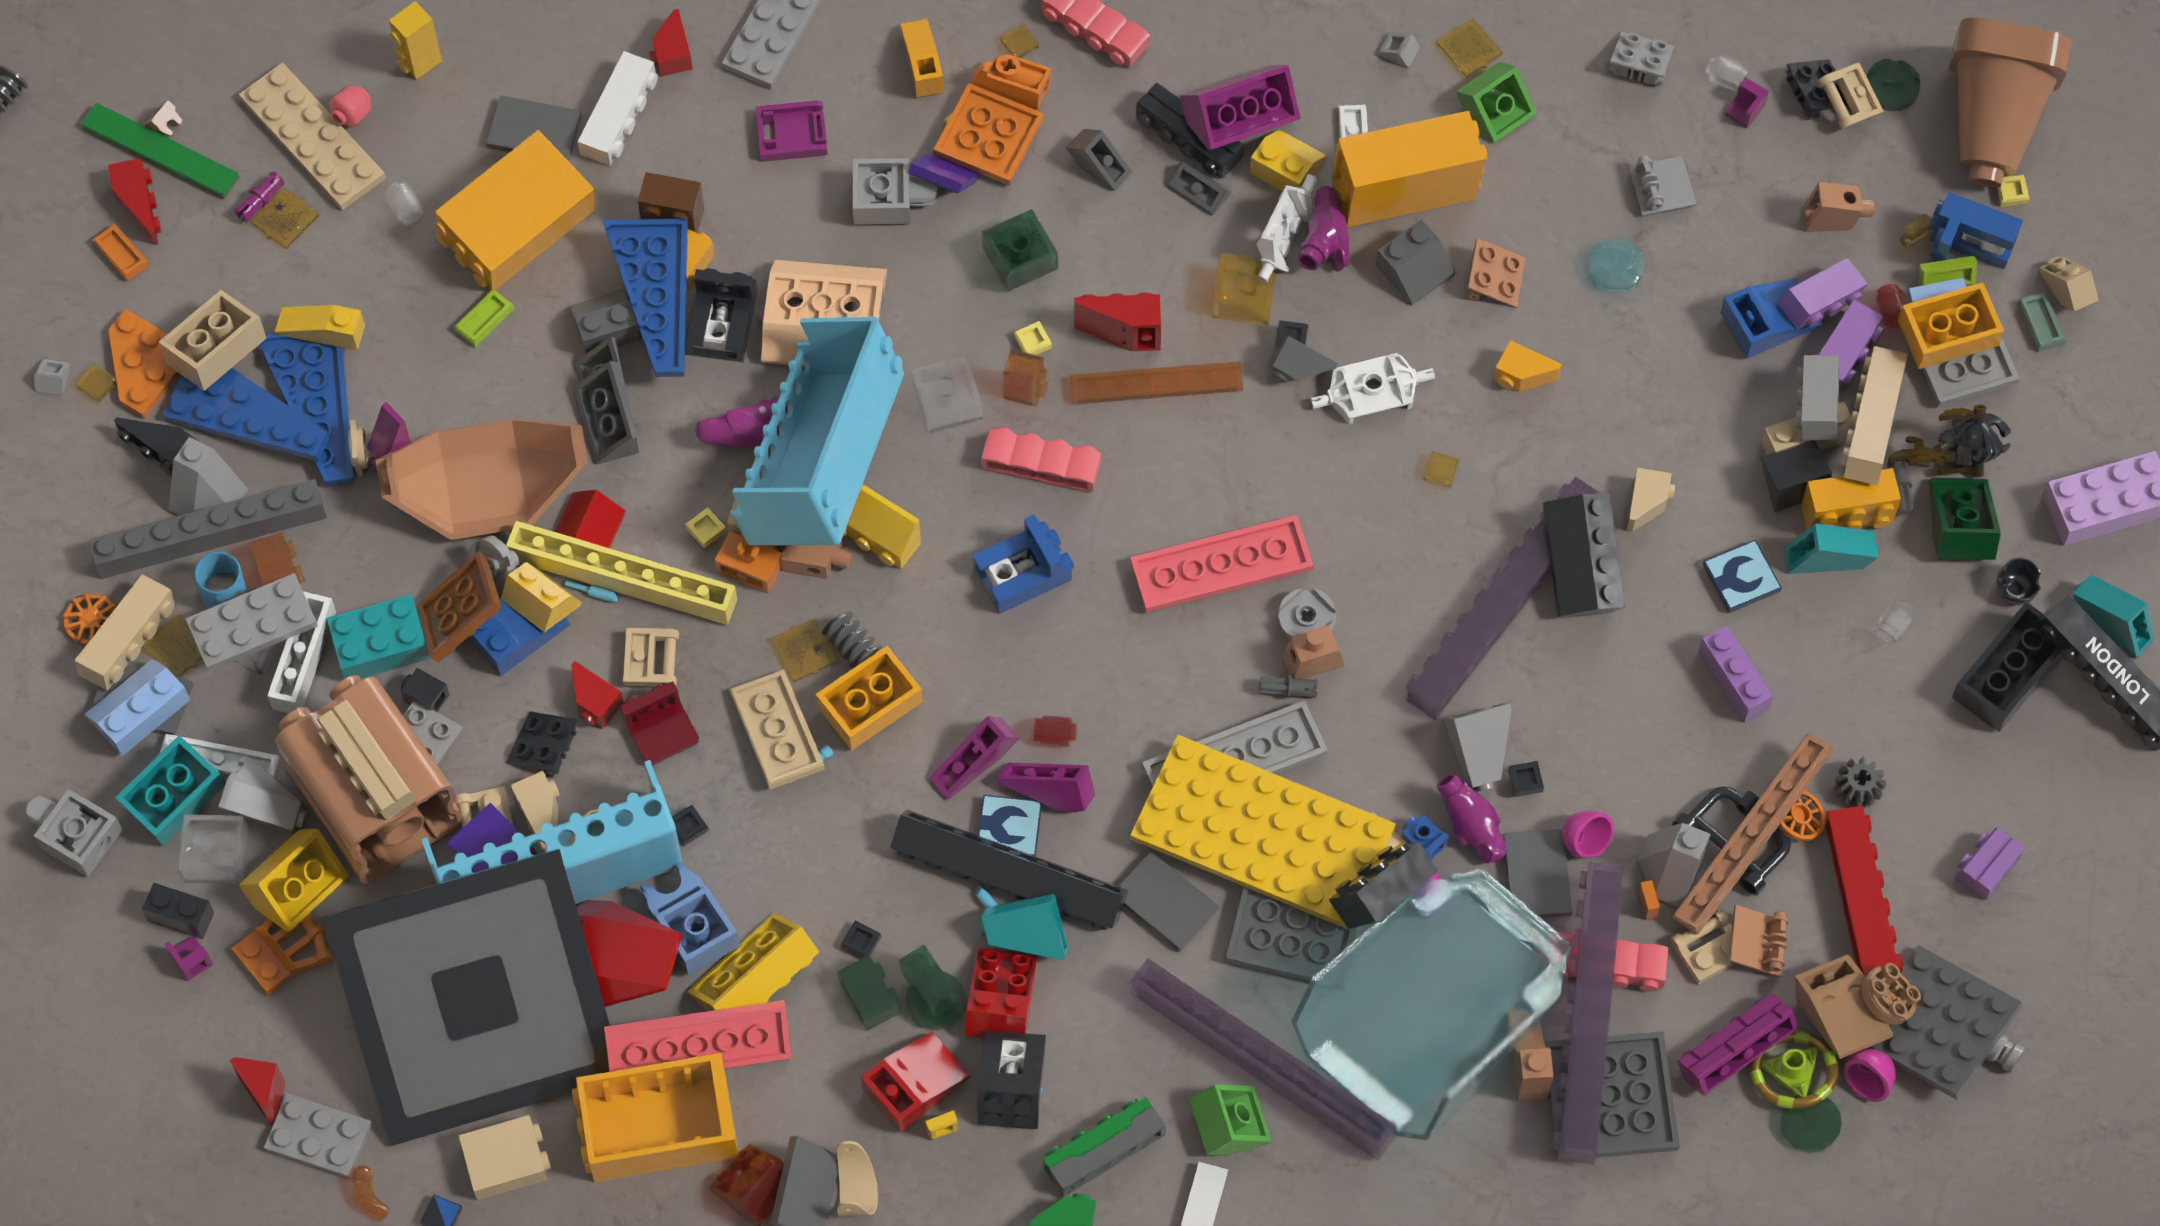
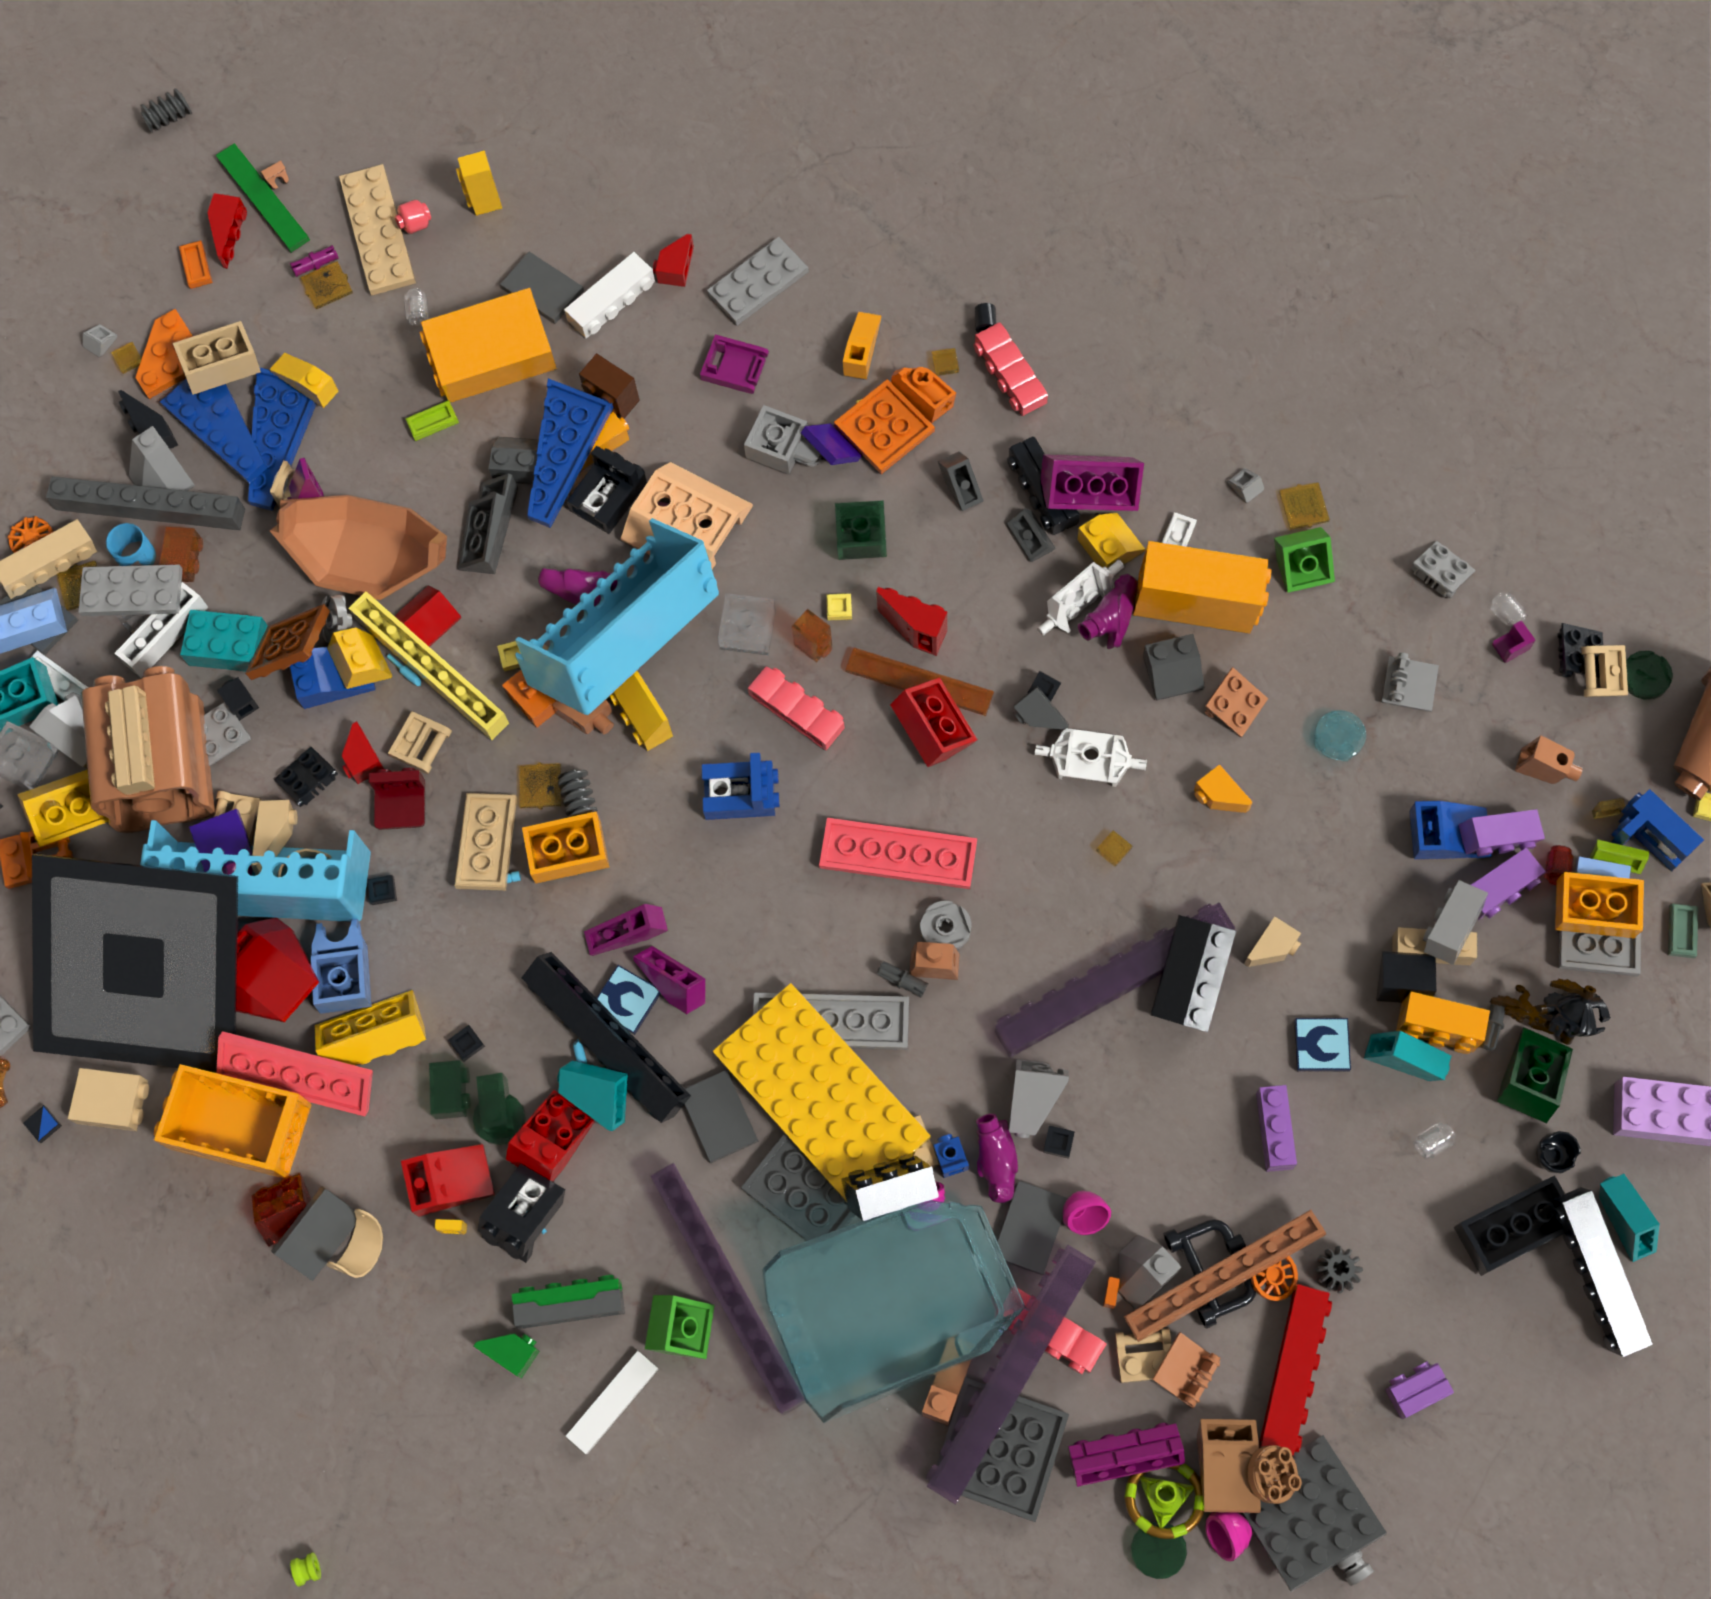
camera: 30 degrees right, 5 degrees up
(1055, 730) = (699, 936): clear red brick -> none
(1193, 416) = (933, 721): none -> red slope
(1239, 293) = (1018, 634): clear yellow slope -> none
(1875, 415) = (1496, 958): tan brick -> none

